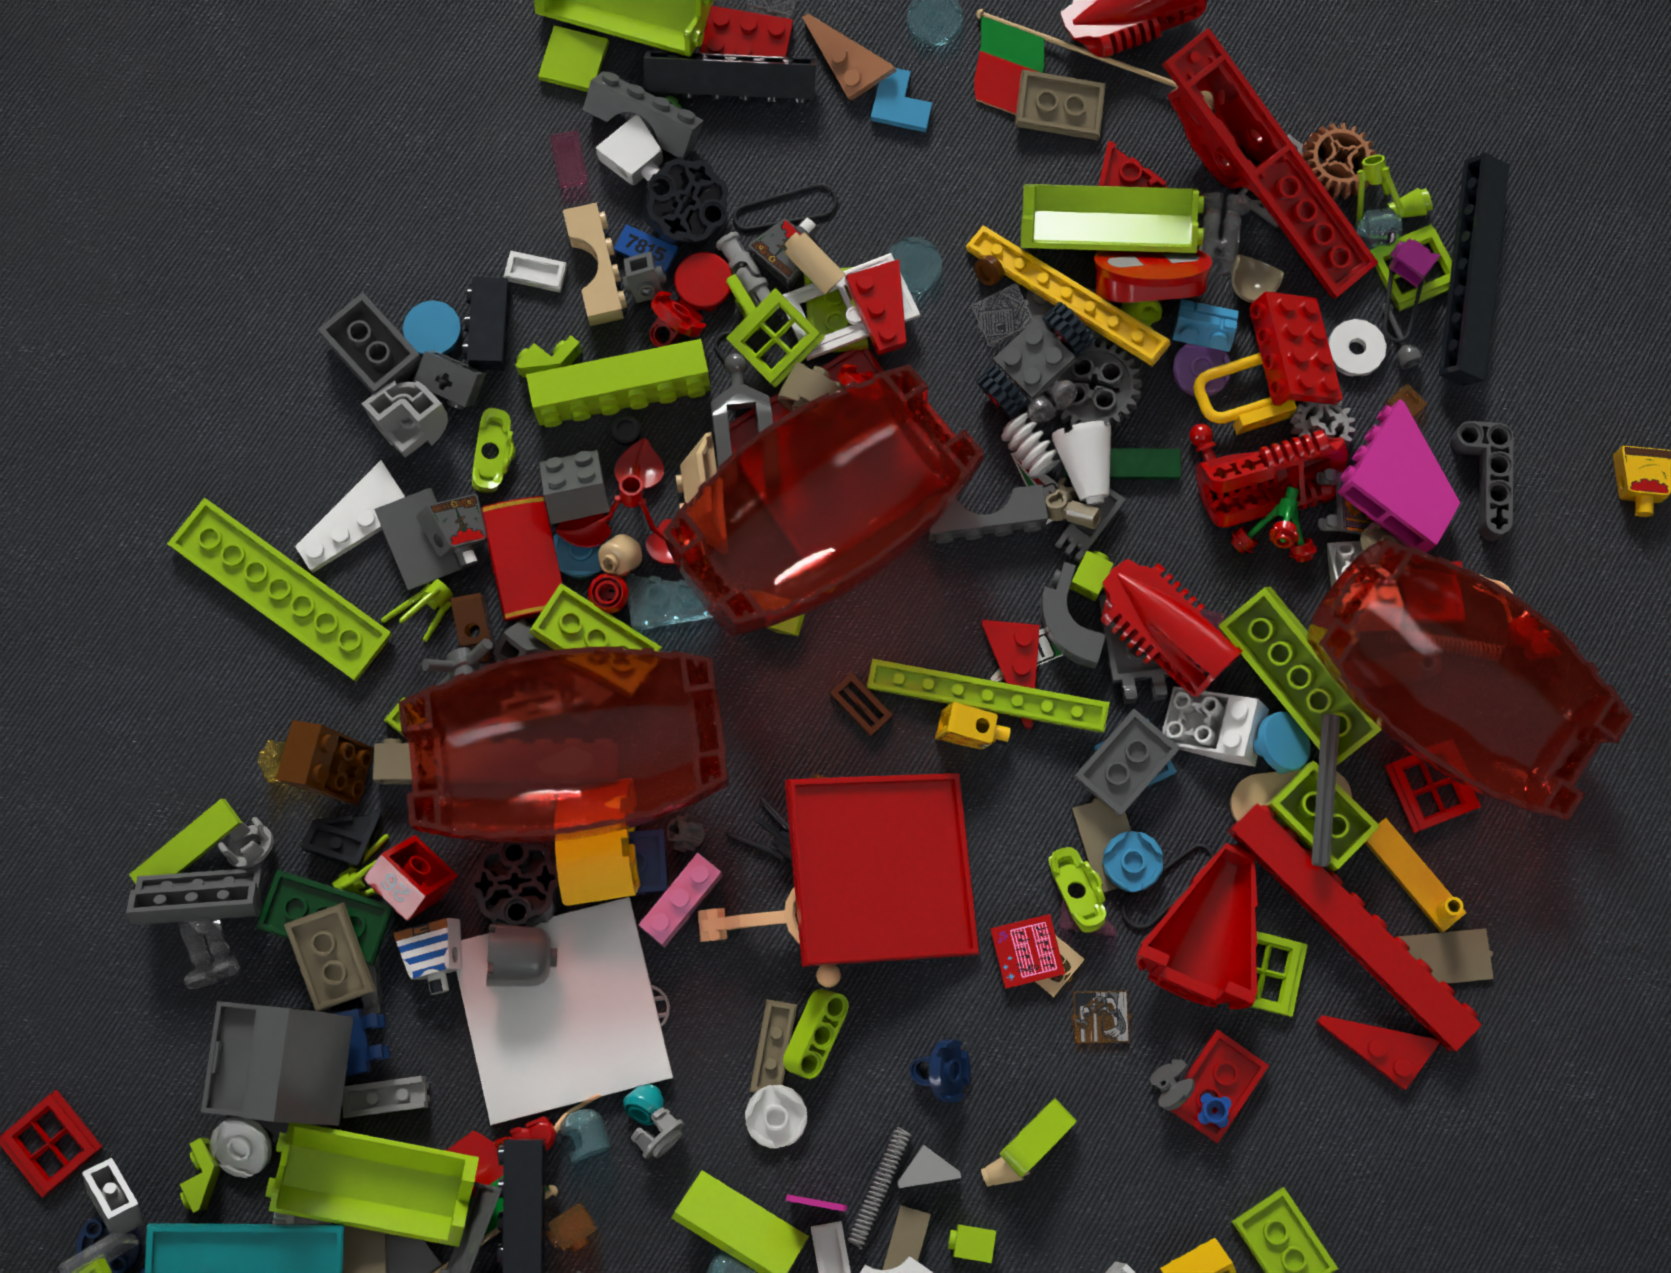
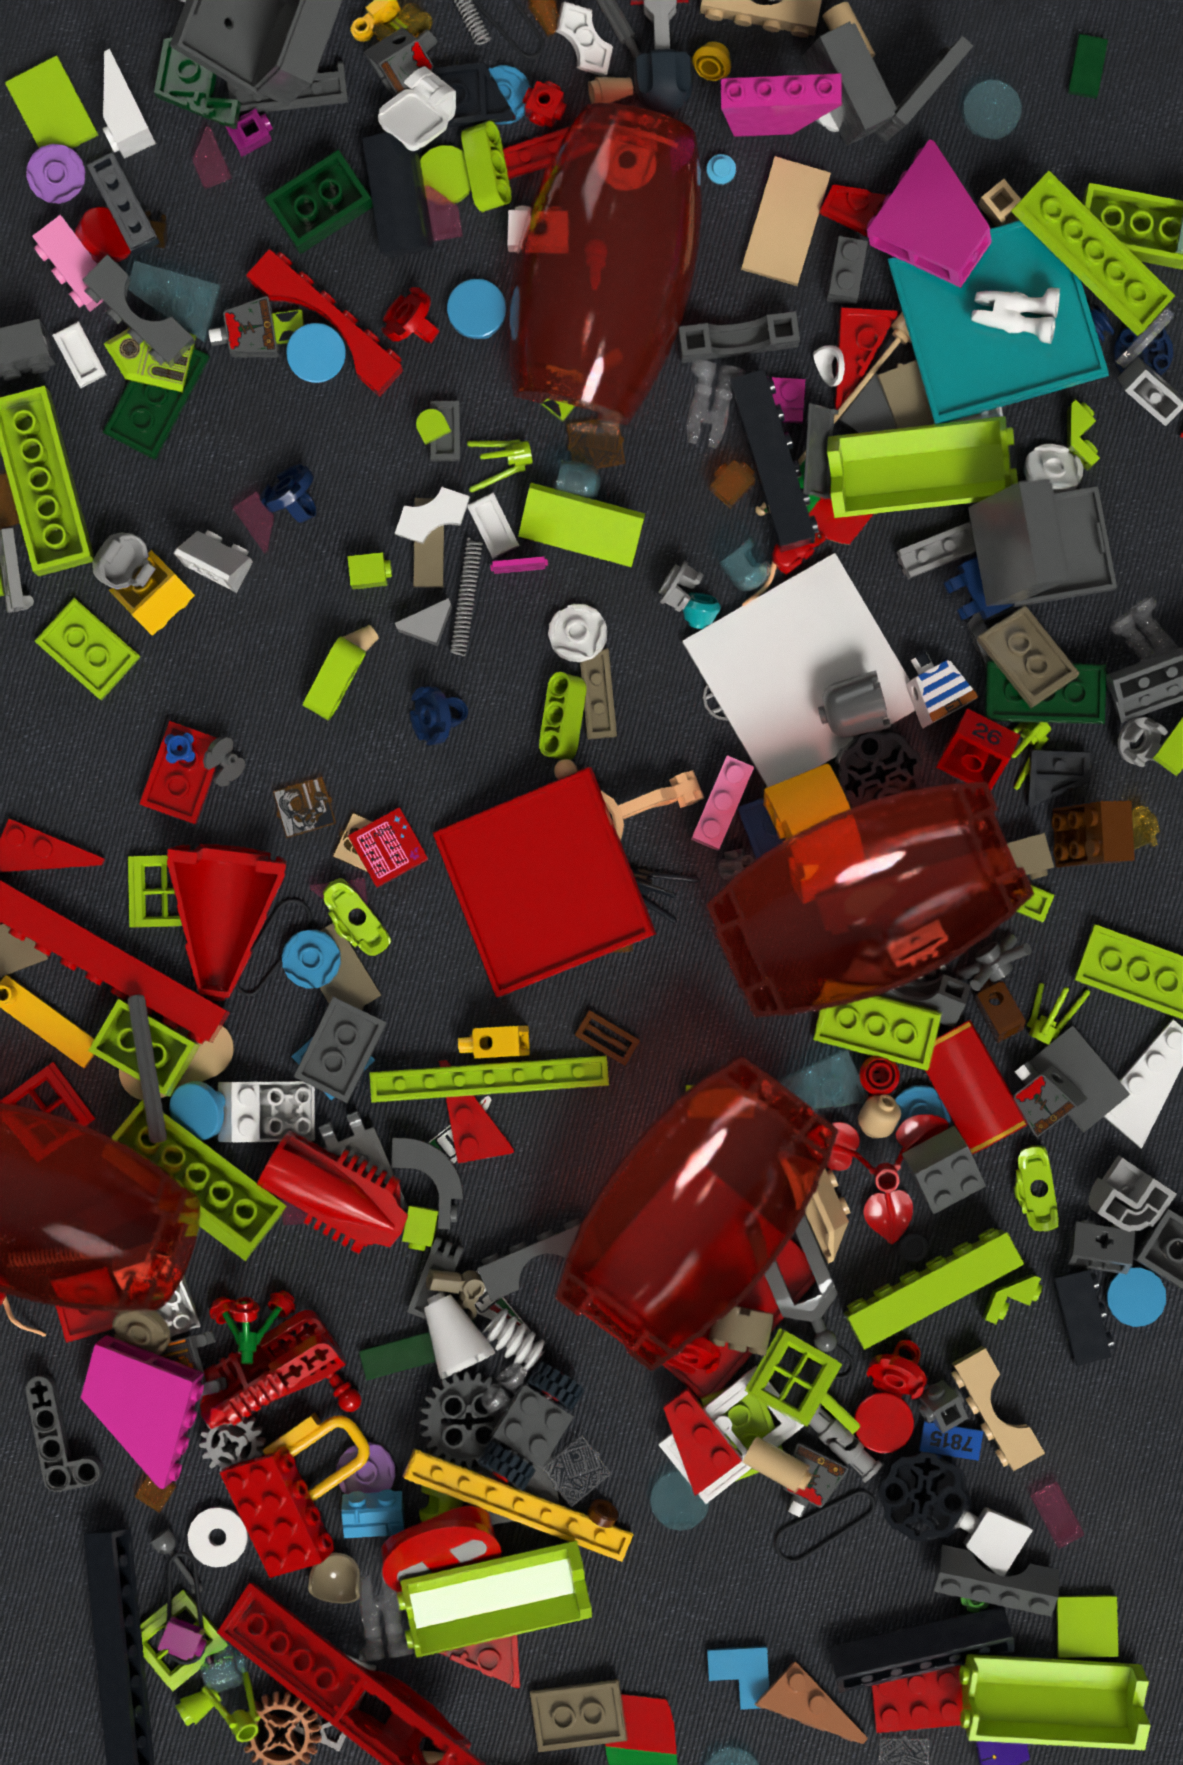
camera: 165 degrees right, 10 degrees up
(535, 271) = (1053, 1386): white tile -> none

